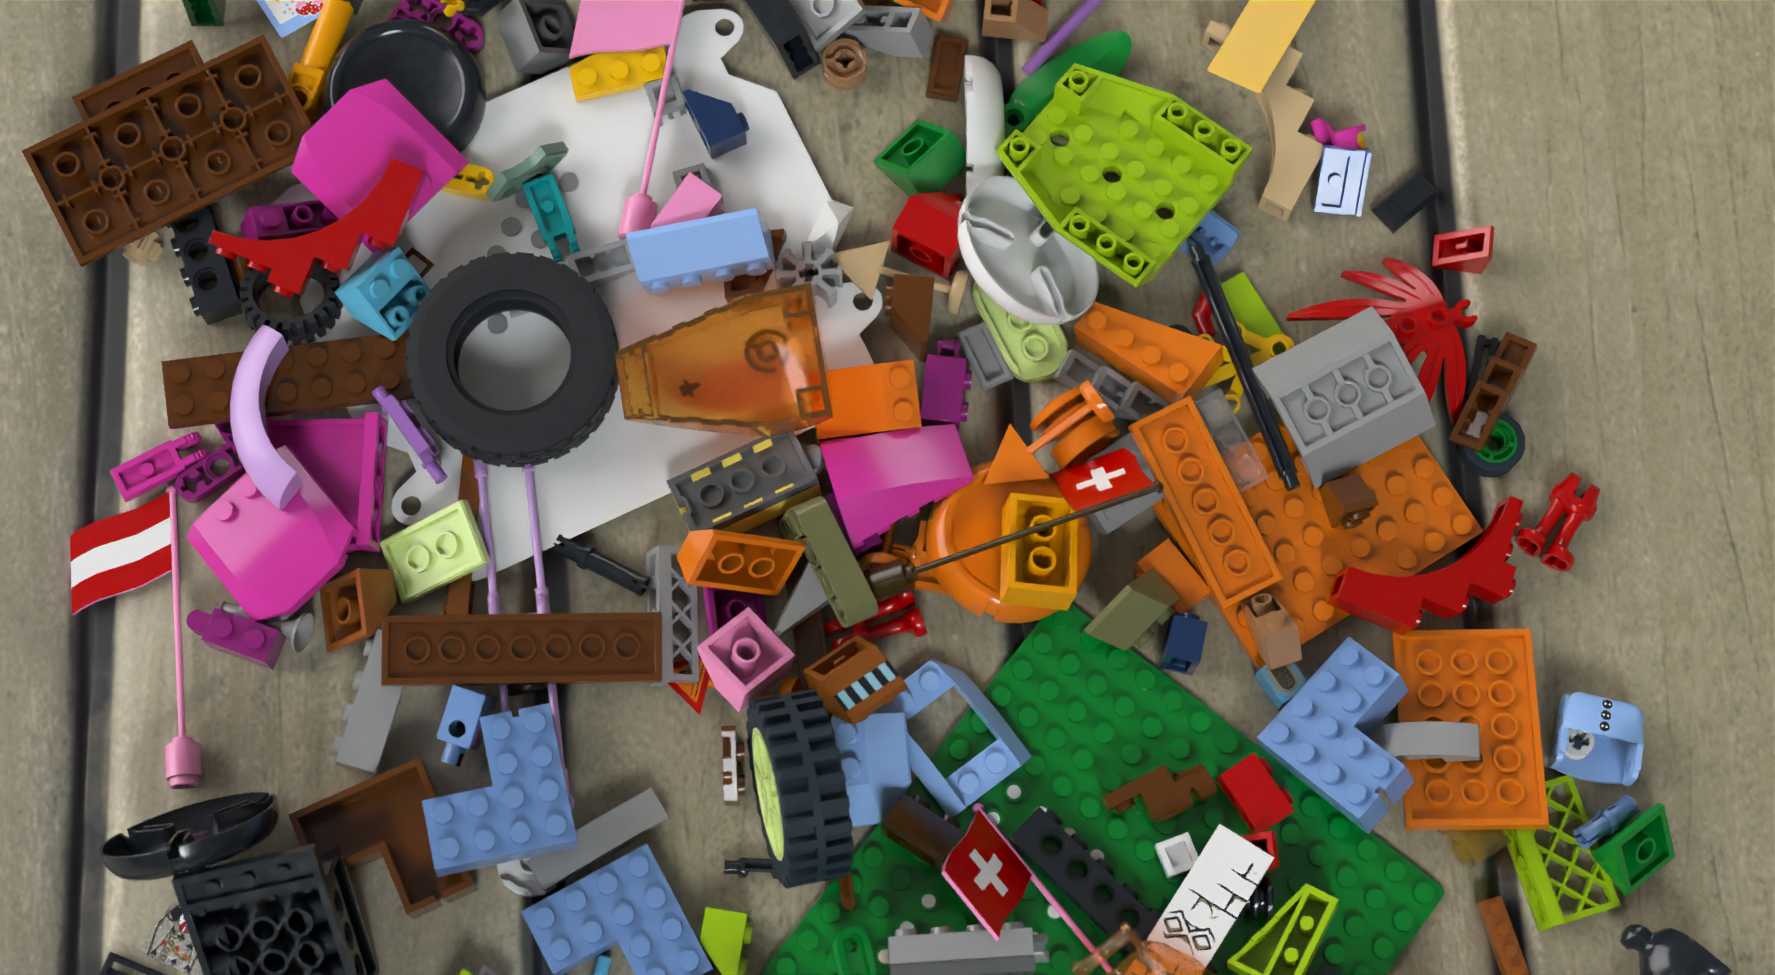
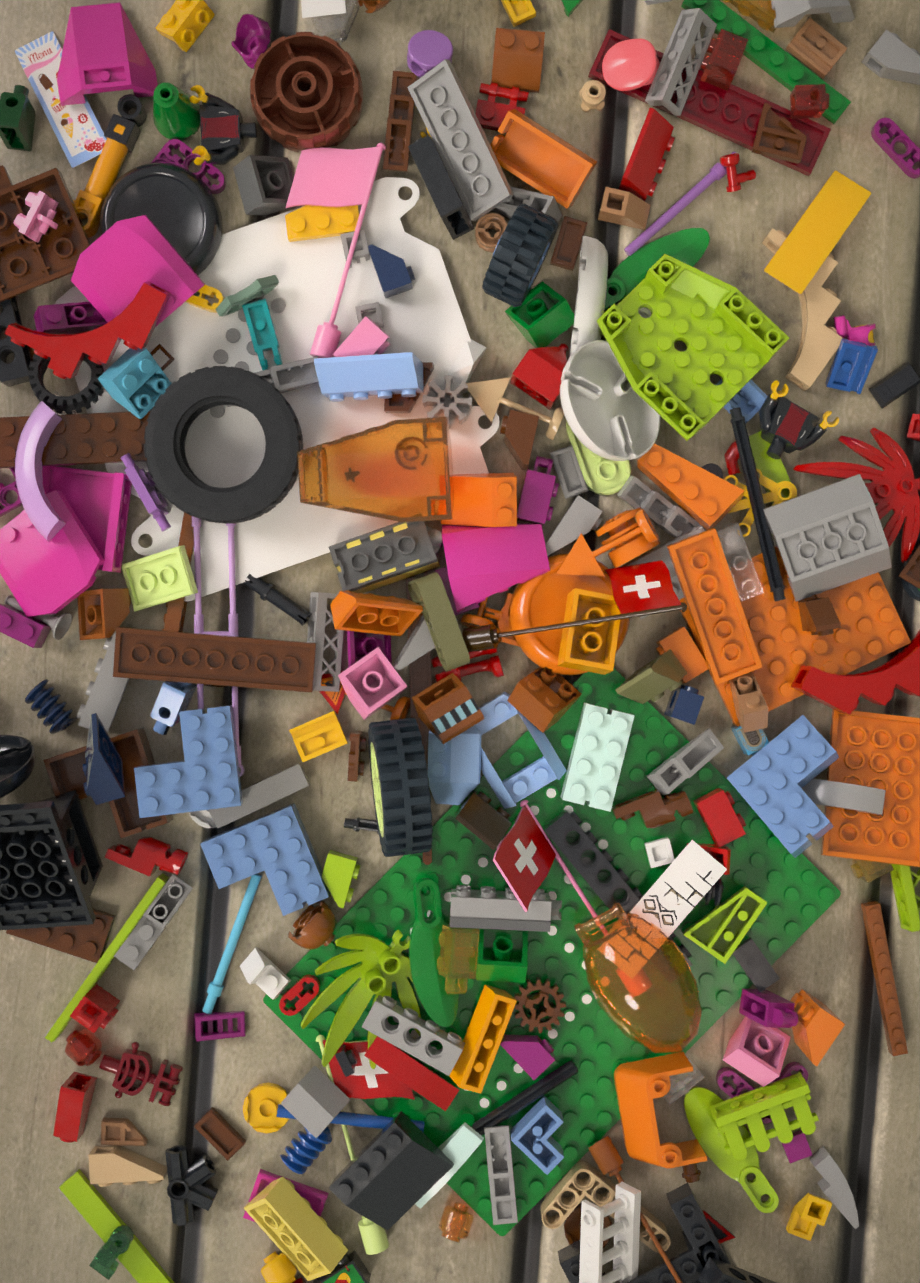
camera: 10 degrees right, 15 degrees up
(246, 95) = (39, 216): none -> bright pink hips
(290, 748) = (49, 708): none -> dark blue piece
(374, 812) = (102, 765): none -> dark blue slope
(448, 942) = (147, 856): none -> red plate
(676, 748) = (318, 736): none -> yellow plate
(884, 82) = (519, 255): none -> black wheel
(986, 656) = (543, 697): none -> dark orange slope
(1004, 407) = (578, 519): none -> light grey slope
(1071, 728) = (597, 756): none -> light aqua piece
(1196, 724) = (685, 762): none -> light grey slope
(1269, 262) = (789, 425): none -> torso

